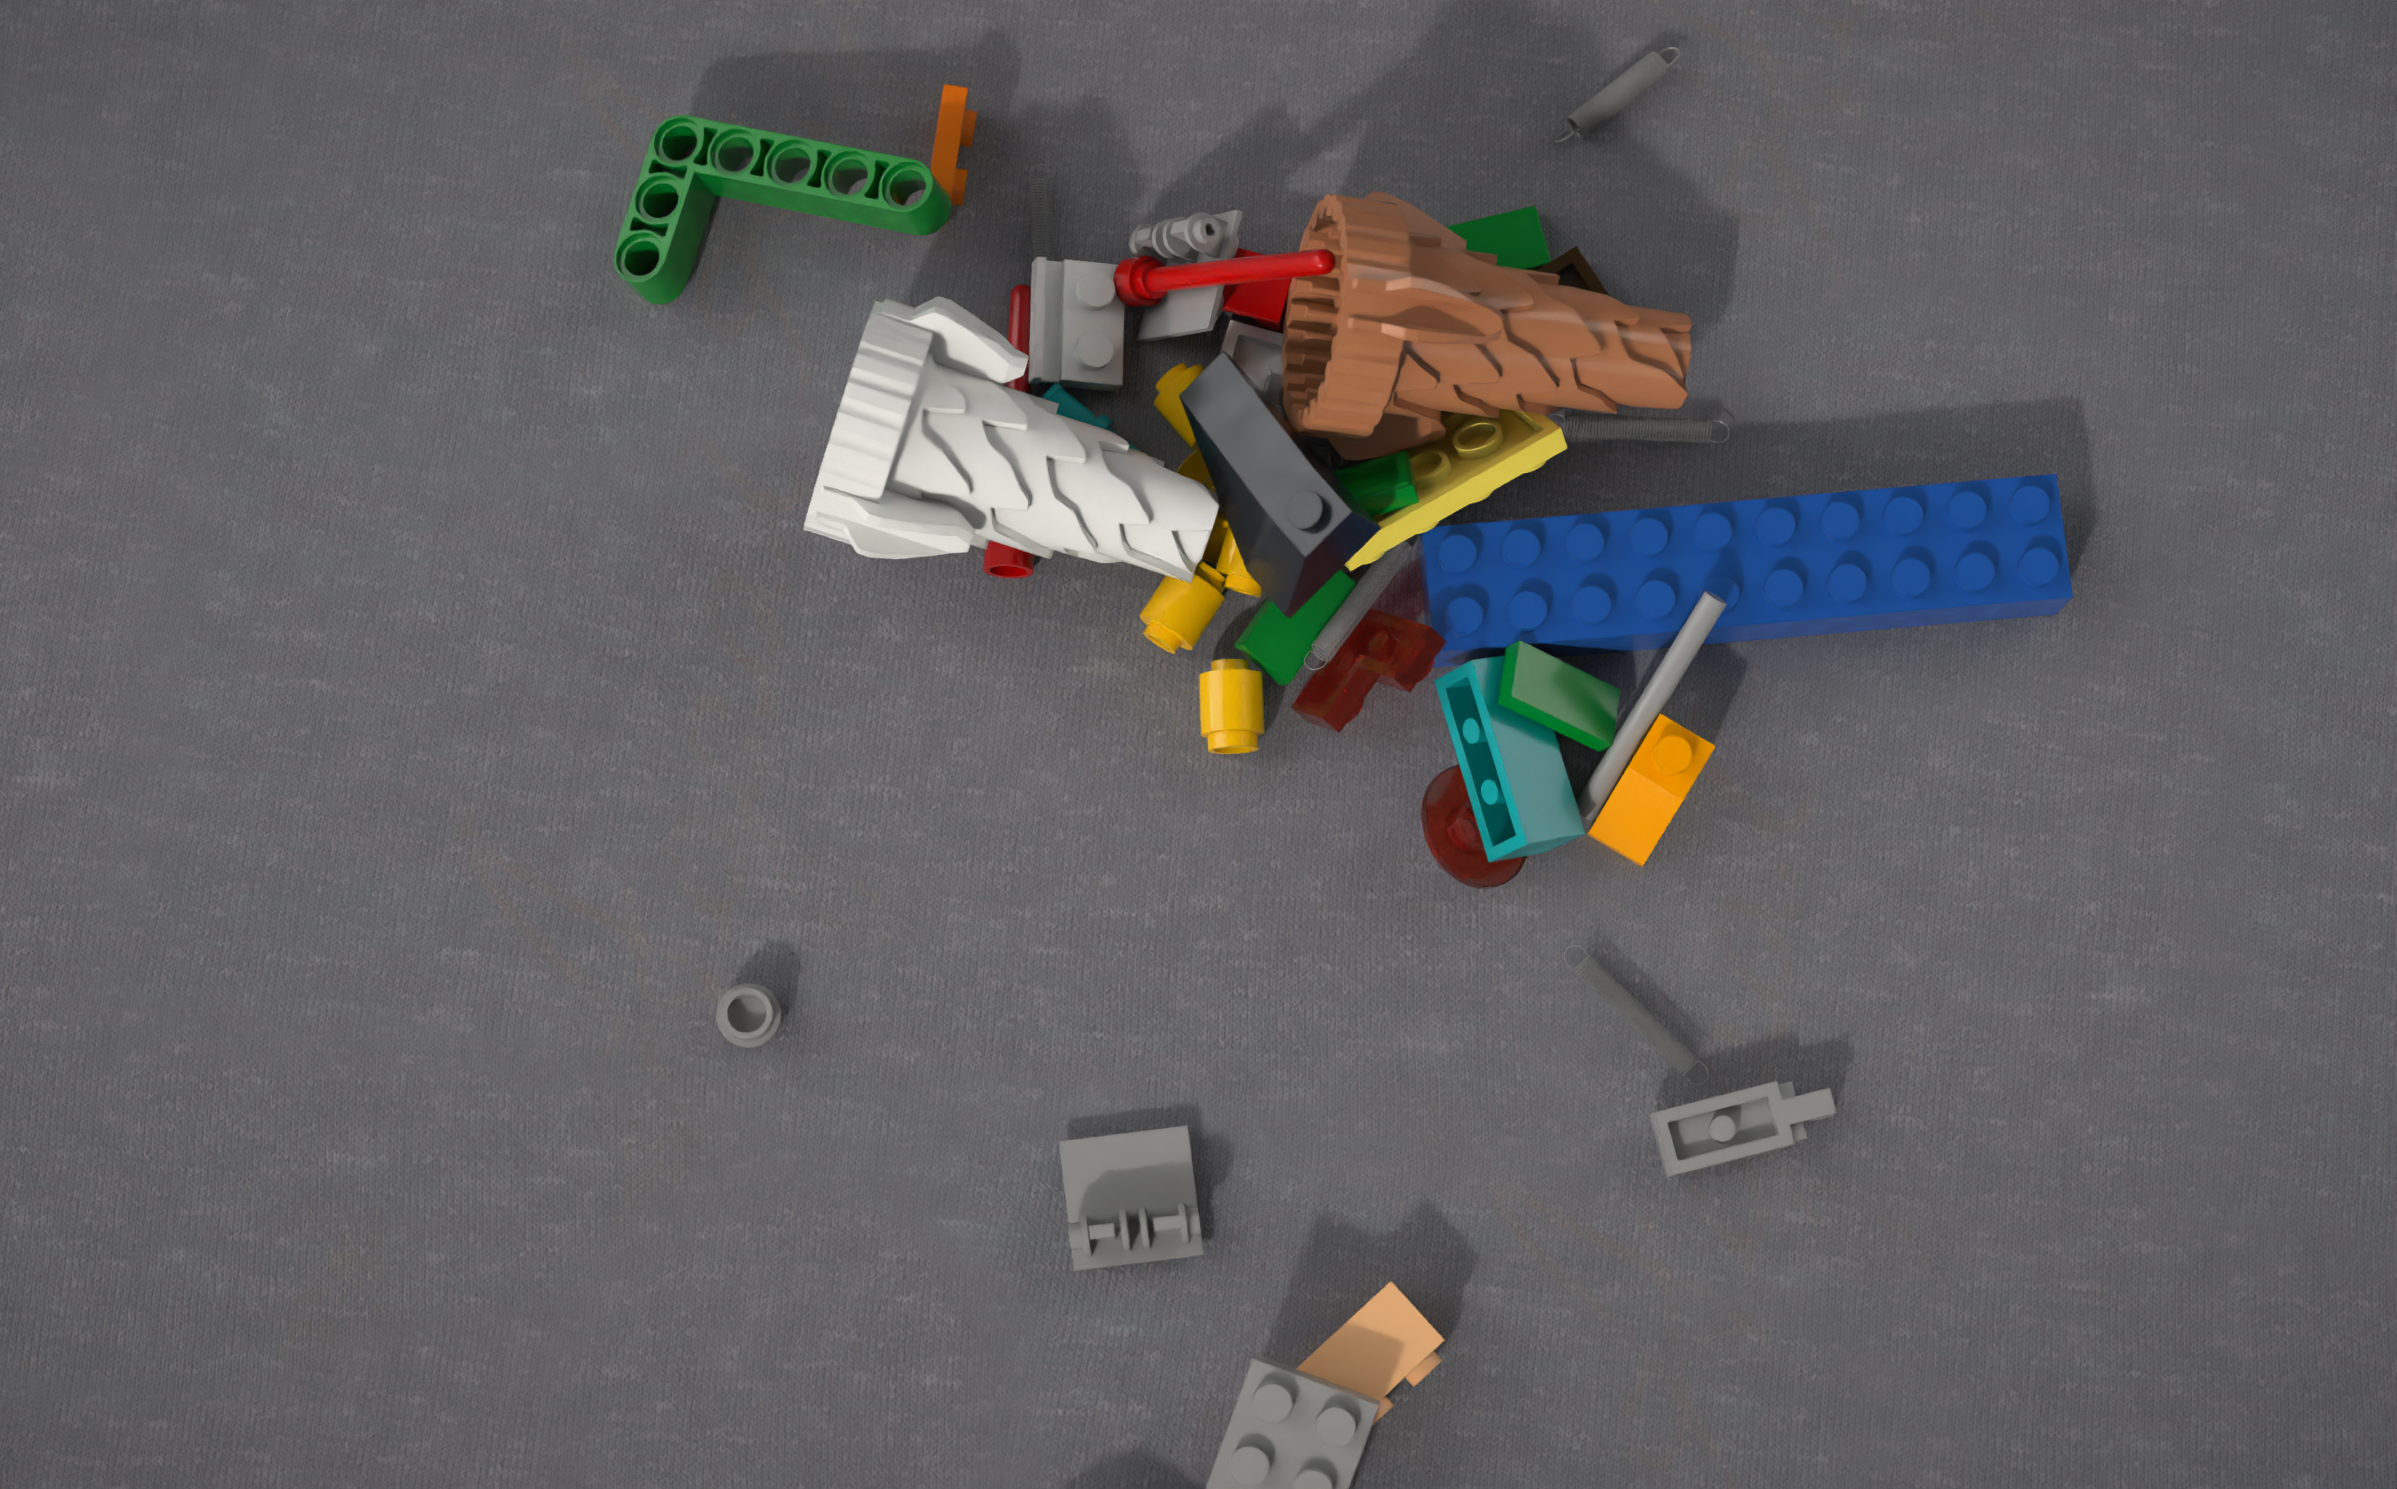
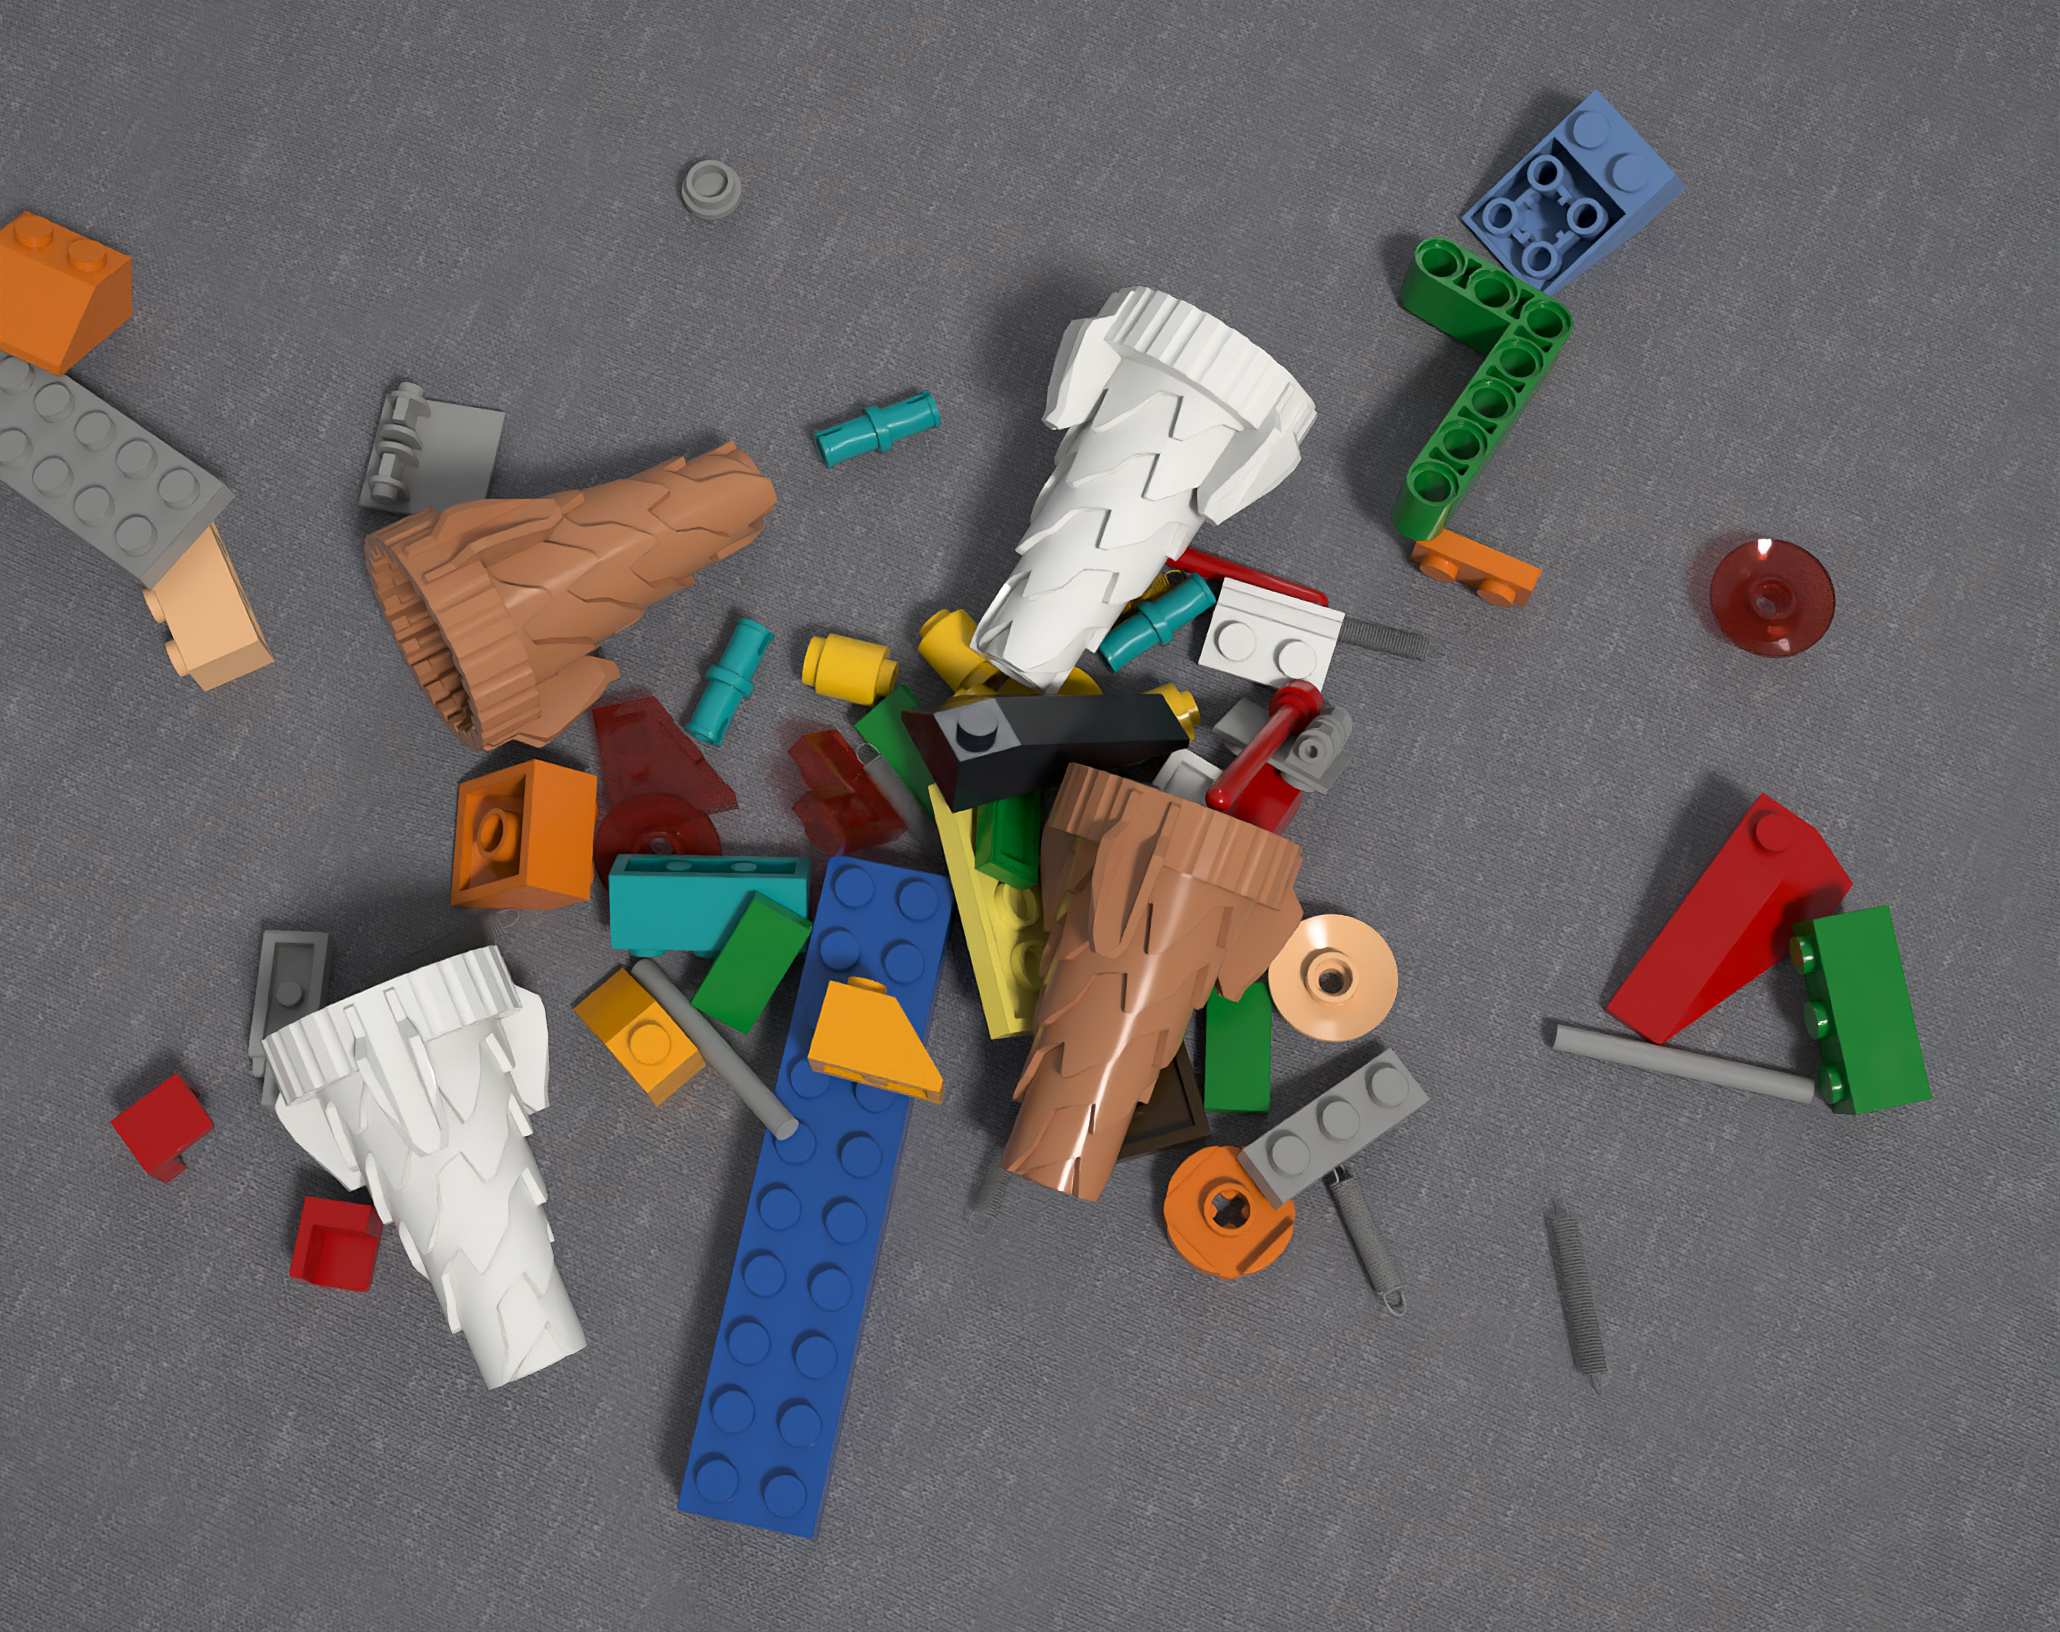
camera: 105 degrees right, 5 degrees down
(521, 156) = (1574, 197): none -> medium blue slope
(969, 762) = (877, 429): none -> teal pin
(1278, 820) = (729, 682): none -> teal pin
(1287, 1030) = (518, 593): none -> nougat cone
(1383, 864) = (649, 753): none -> clear red wing
(1403, 153) = (1353, 954): none -> light nougat dish
(1501, 961) = (525, 838): none -> orange slope
(1535, 143) = (1332, 1128): none -> light grey plate
(1613, 542) = (871, 1042): none -> light orange slope
(1641, 251) = (1203, 1243): none -> orange plate
(1783, 949) = (429, 1107): none -> white cone
(1885, 1195) = (164, 1127): none -> red panel
(1933, 999) = (336, 1245): none -> red panel

